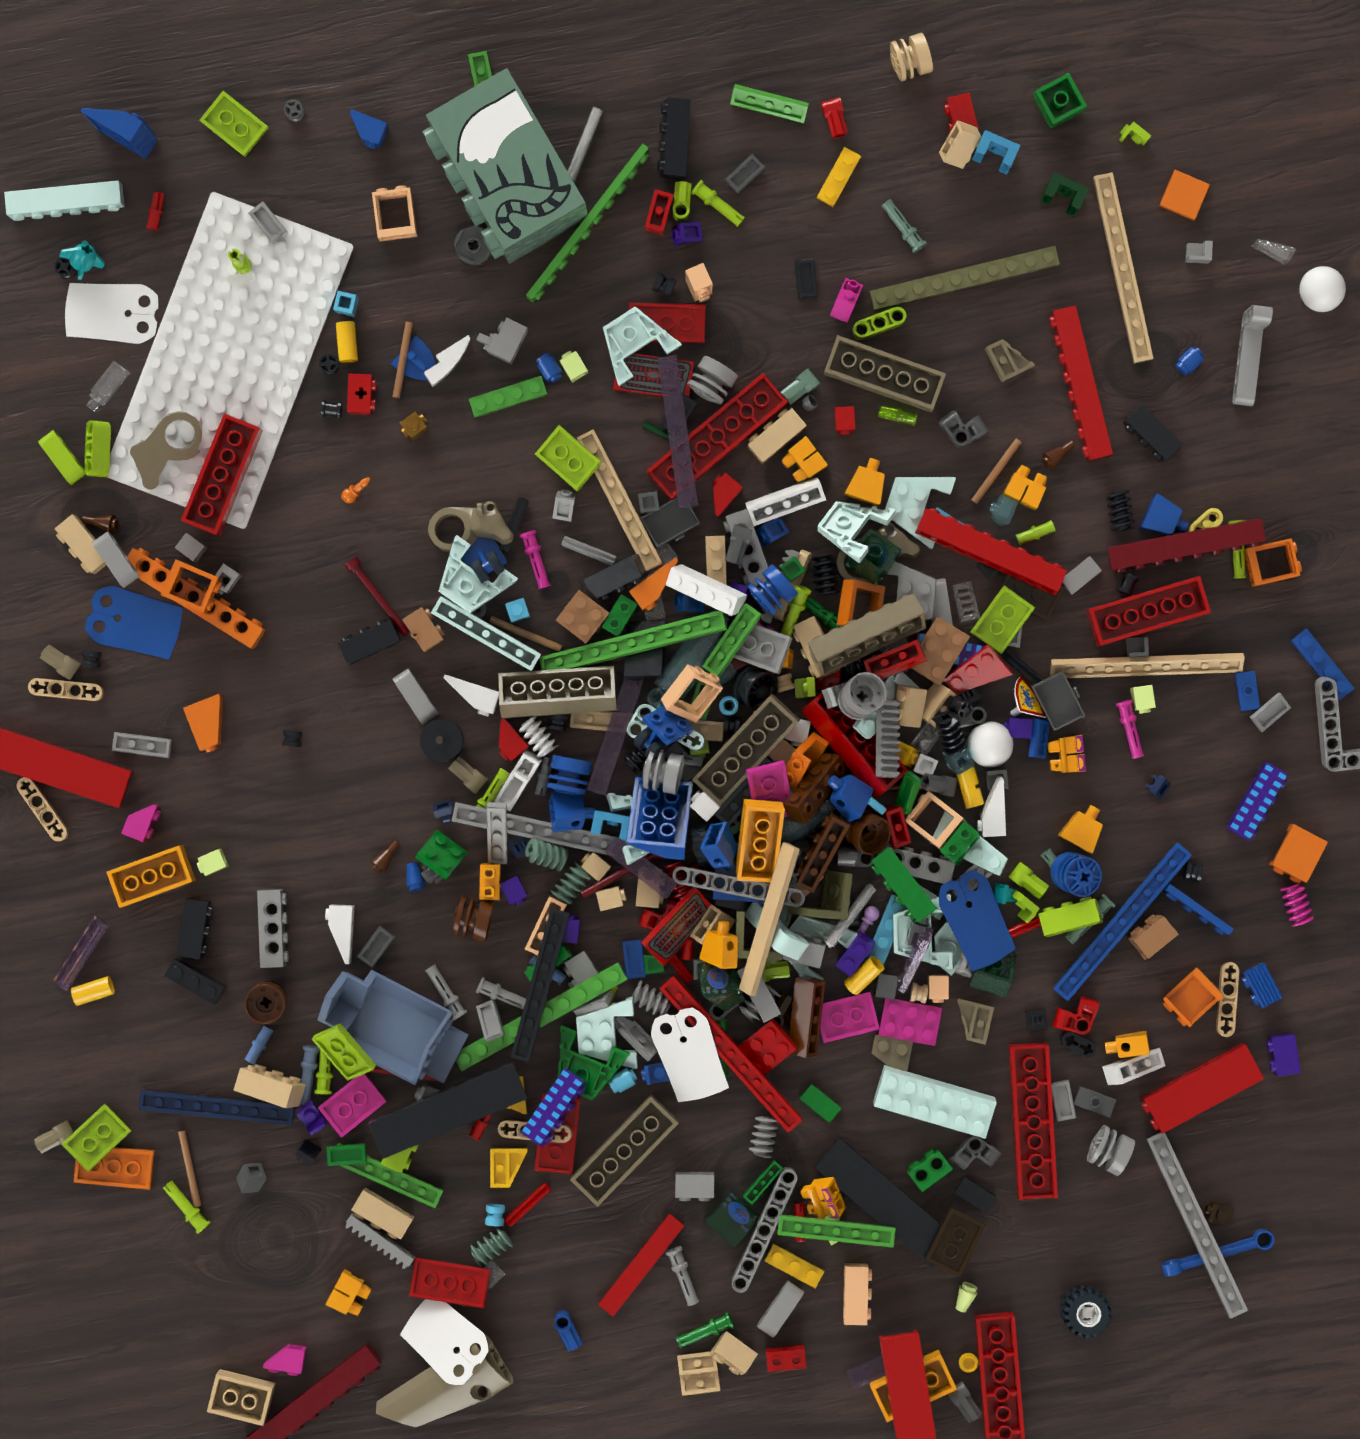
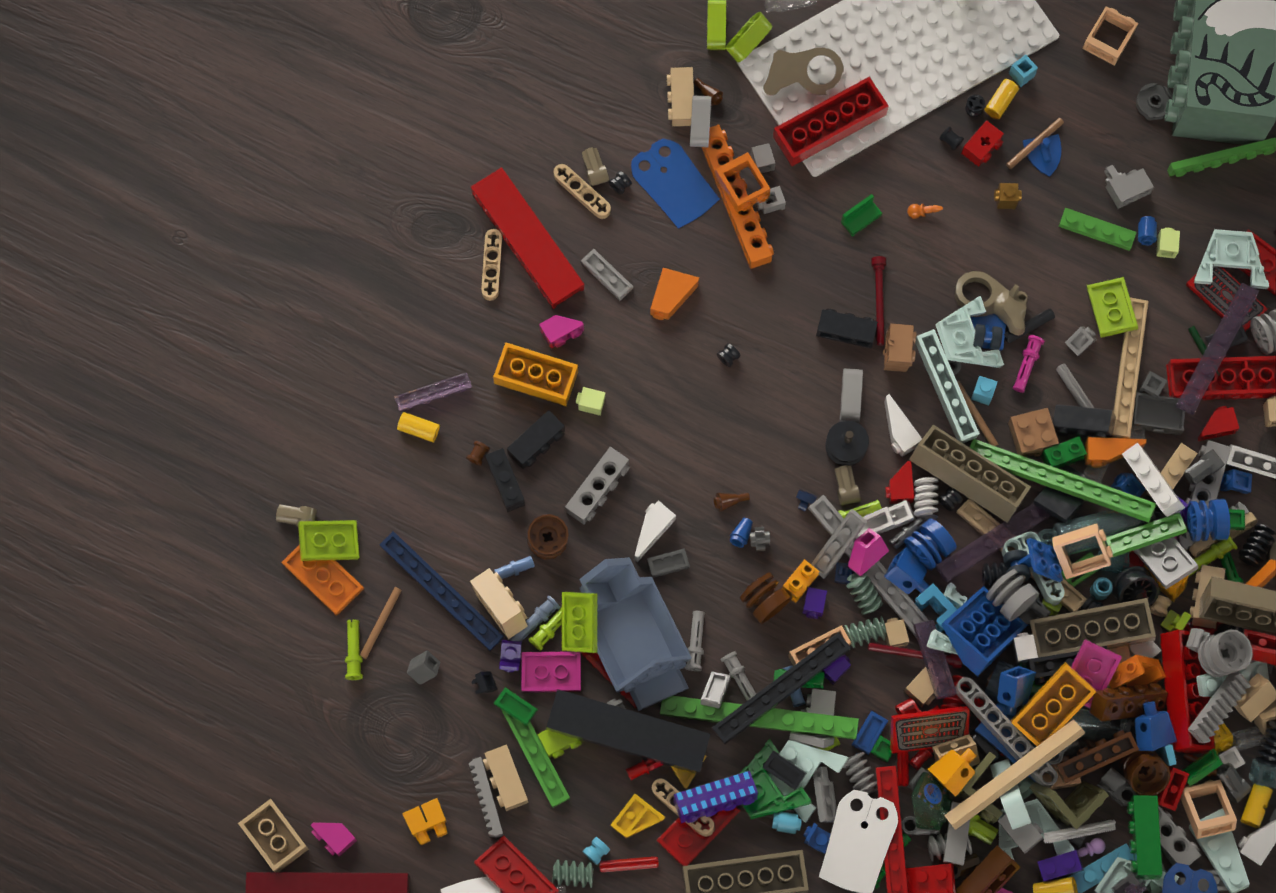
camera: 30 degrees right, 15 degrees down
(156, 975) = (478, 453): none -> reddish brown bush
(308, 534) = (861, 215): none -> green panel
(441, 854) = (778, 529): green plate -> none
(447, 361) = (1069, 168): white slope -> none
(524, 824) = (866, 552): none -> dark pink slope
(591, 1043) = (784, 770): none -> black tile
(611, 898) = (890, 666): tan brick -> none
(960, 843) = (1218, 840): green brick -> none

